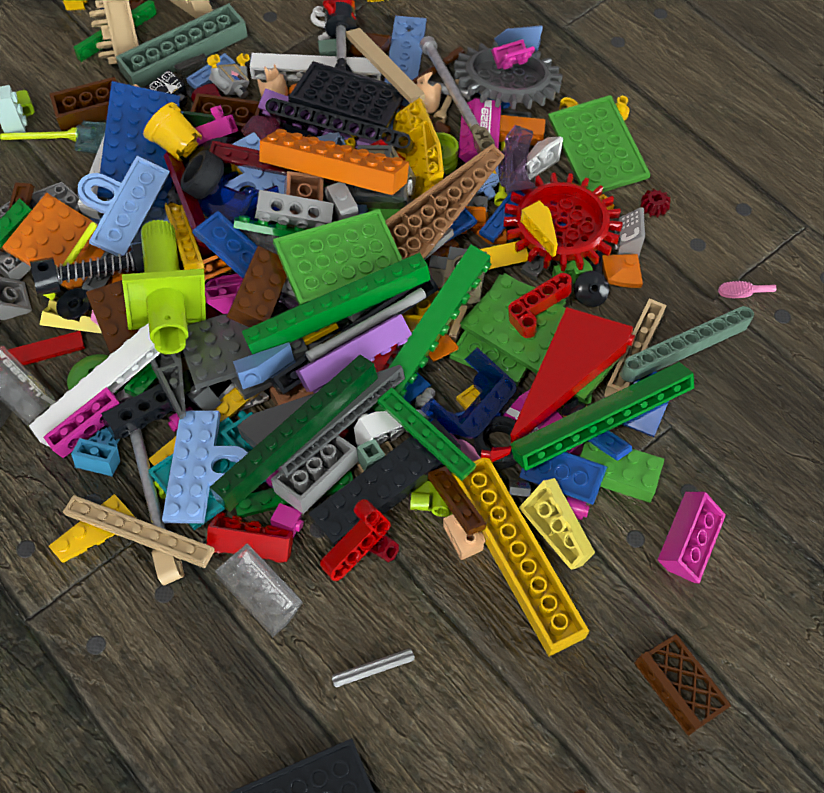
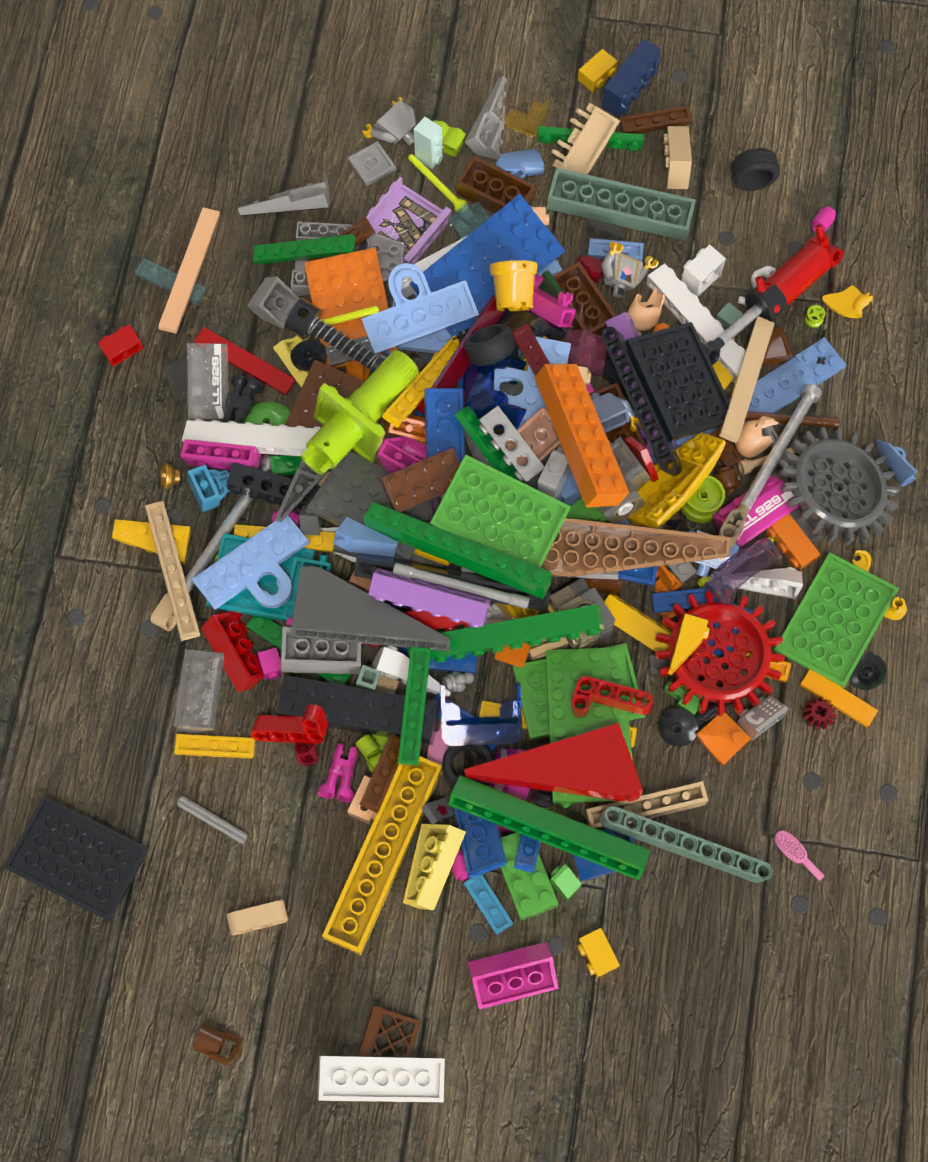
camera: 50 degrees right, 10 degrees up
(35, 75) = (486, 132): none -> light grey wedge
(46, 167) = (408, 219): none -> lavender panel
(54, 383) = (242, 405): none -> black piece
(57, 477) = (169, 476): none -> pearl gold piece
(62, 55) = (528, 122): none -> clear yellow panel
(89, 74) = (522, 163): none -> medium blue panel
(171, 84) = (569, 233): black torso -> none
(280, 34) = (703, 270): none -> white brick
(293, 433) = (324, 613): dark green brick -> none
(312, 618) = (214, 746): none -> yellow tile
(376, 9) = (817, 312): none -> lime wheel
(421, 534) = (340, 769): none -> dark pink piece
(488, 695) = (257, 917): none -> tan beam
(496, 453) = (445, 770): red bar -> none
(512, 54) = (858, 471): dark pink bracket -> none
(621, 512) = (488, 904): none -> dark azure plate
(649, 442) = (564, 882): none -> slope
(653, 149) = (866, 664): none -> black dish
(666, 183) = (839, 697): none -> light orange tile
(706, 698) = (380, 1079): none -> white plate
(721, 465) = (598, 953): none -> yellow brick

